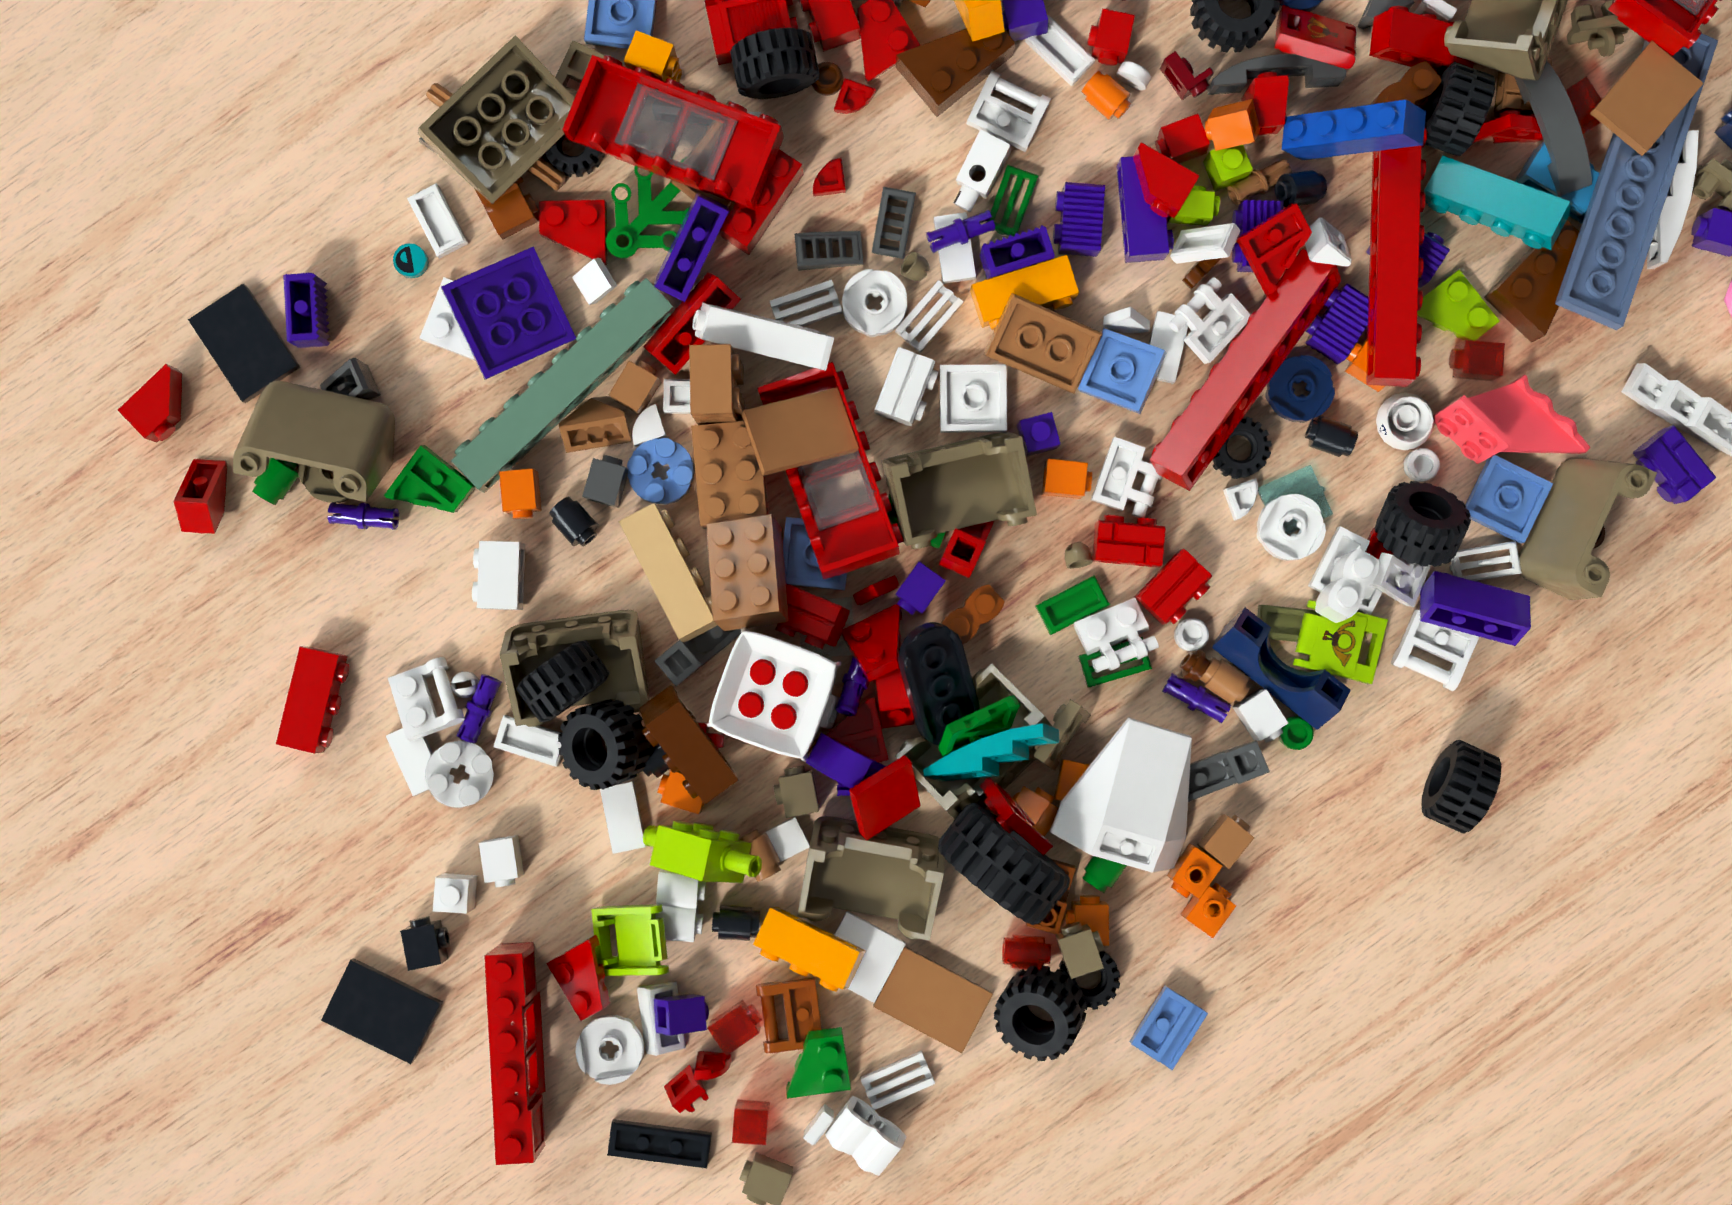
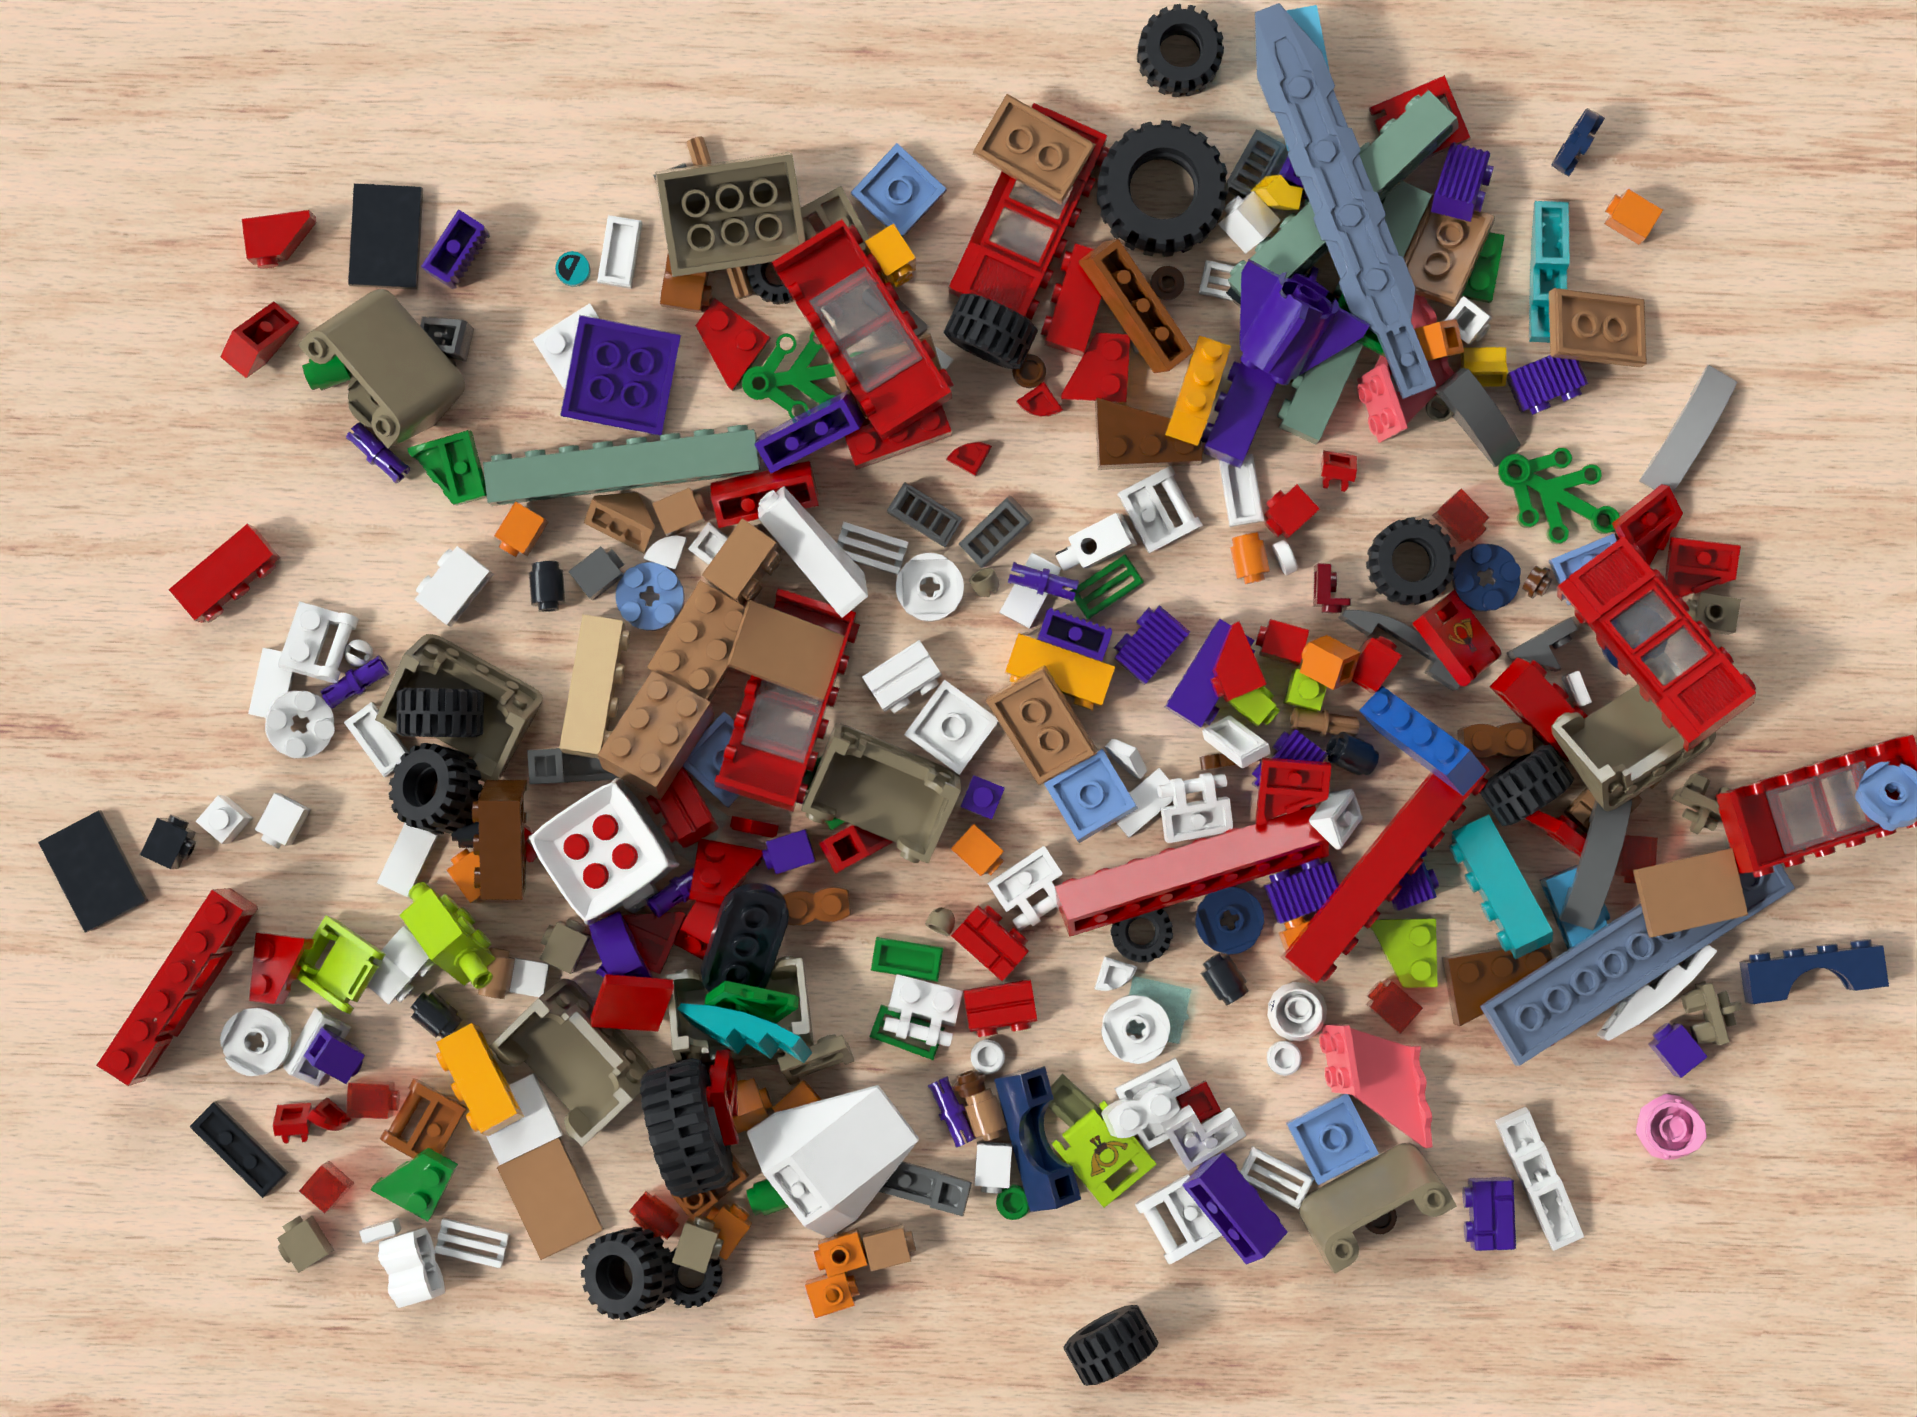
camera: 35 degrees right, 0 degrees up
(594, 281) = (711, 398): white tile -> none
(947, 295) = (995, 625): white tile -> none
(1168, 1027) = (726, 1365): medium blue plate -> none
(1422, 523) = (1240, 1106): black tyre -> none

